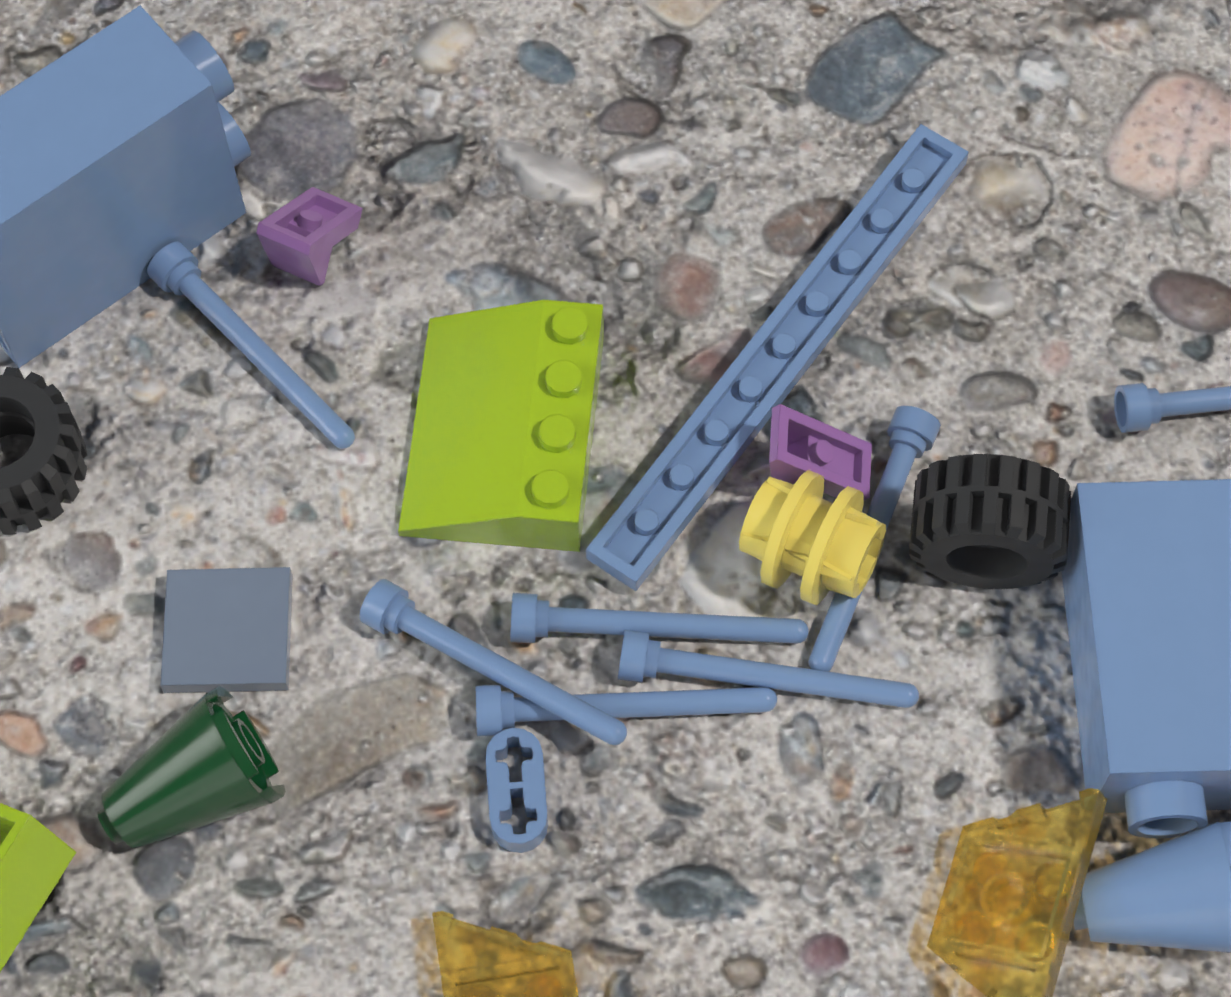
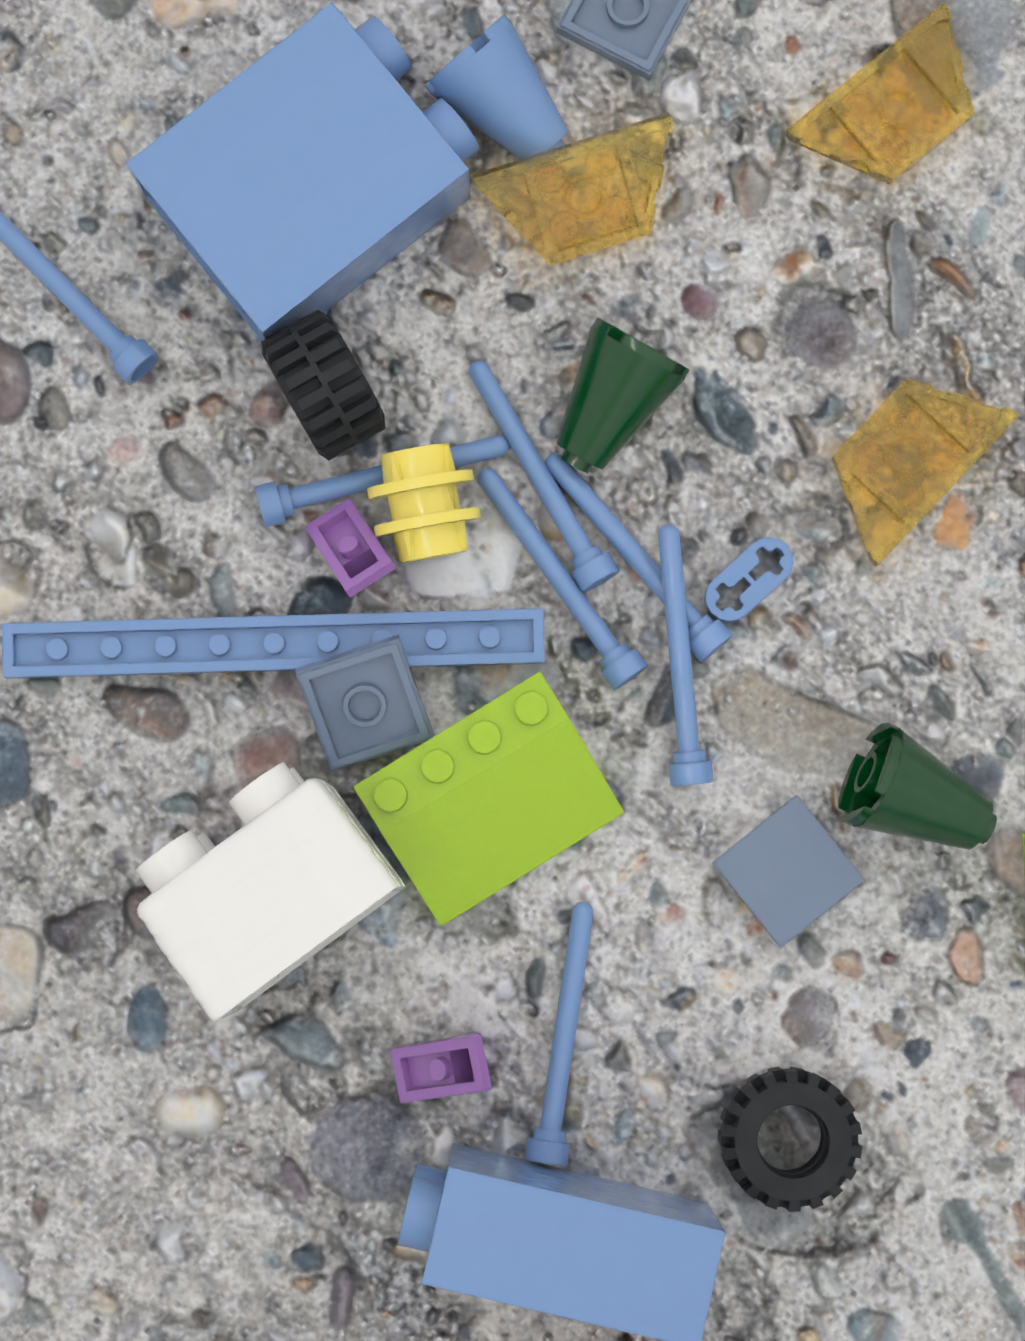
camera: 130 degrees left, 20 degrees up
(567, 155) = (266, 894): none -> white brick
(671, 380) = (364, 703): none -> sand blue tile
(792, 791) = (613, 395): none -> dark green cone

